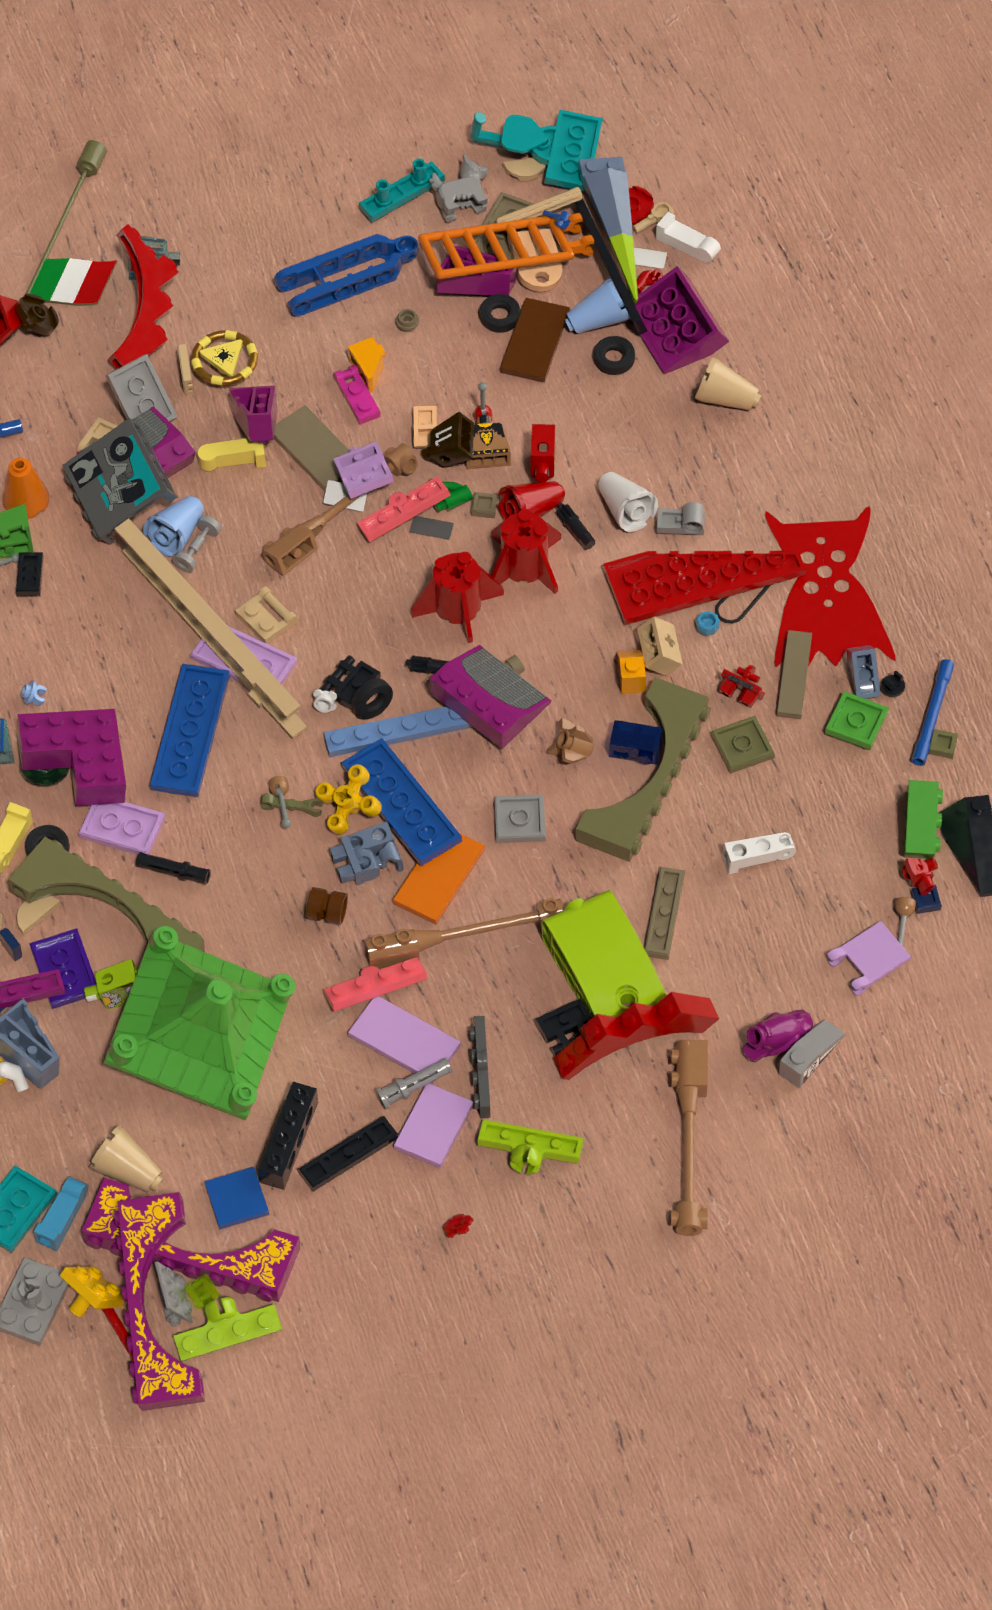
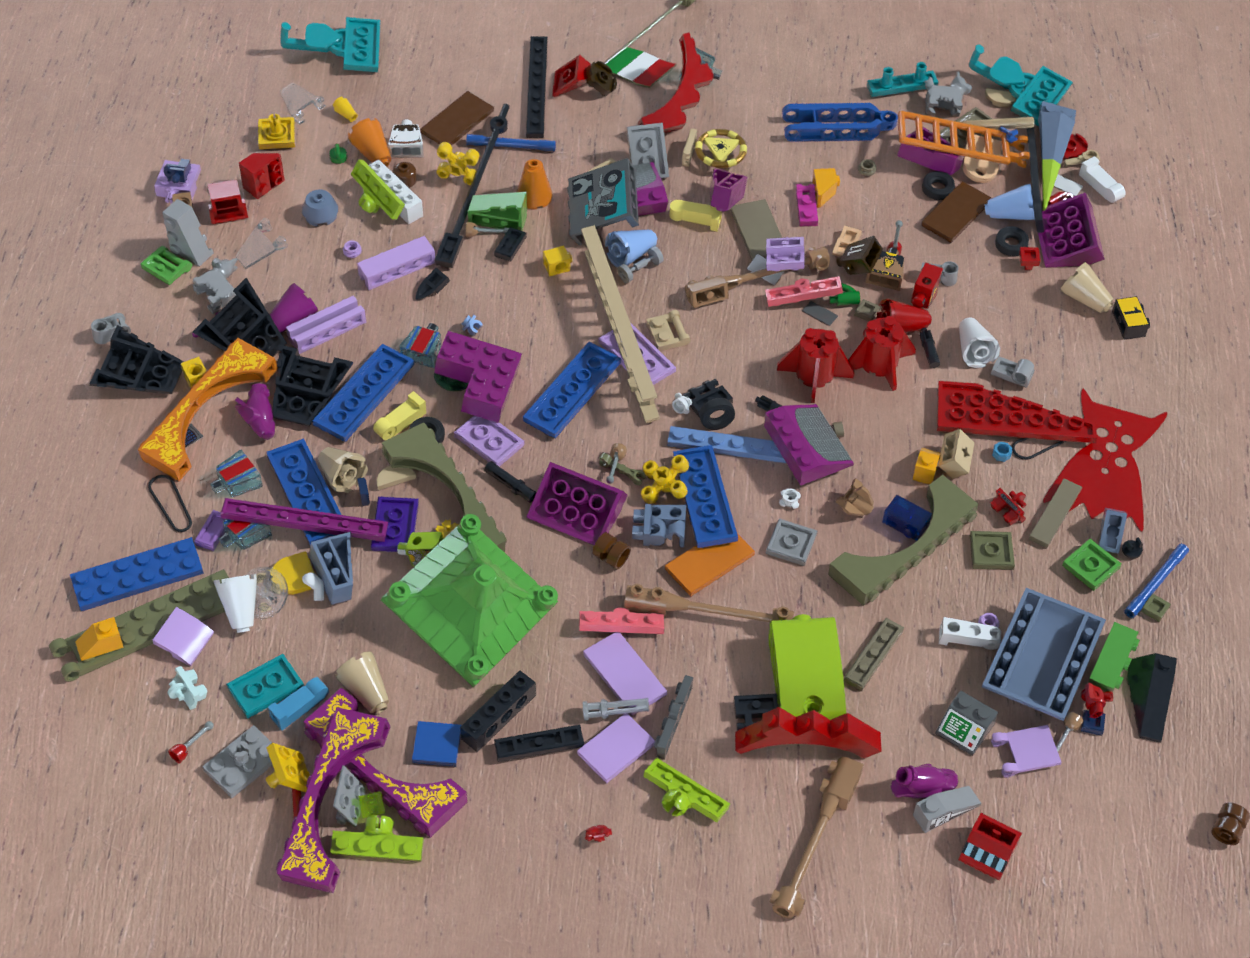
camera: 20 degrees right, 5 degrees down
(96, 575) = (557, 260): none -> yellow brick
(128, 951) = (446, 527): none -> yellow plant
(261, 867) = (576, 504): none -> magenta slope
(496, 762) = (790, 494): none -> white plate
(556, 417) = (949, 273): none -> light grey piece
(643, 370) = (1029, 257): none -> red tile
(772, 824) = (989, 618): none -> lavender plate
(786, 405) = (1130, 318): none -> brick
(795, 952) = (966, 723): none -> slope
(847, 843) = (1044, 654): none -> sand blue slope
(873, 1076) = (990, 846): none -> red slope

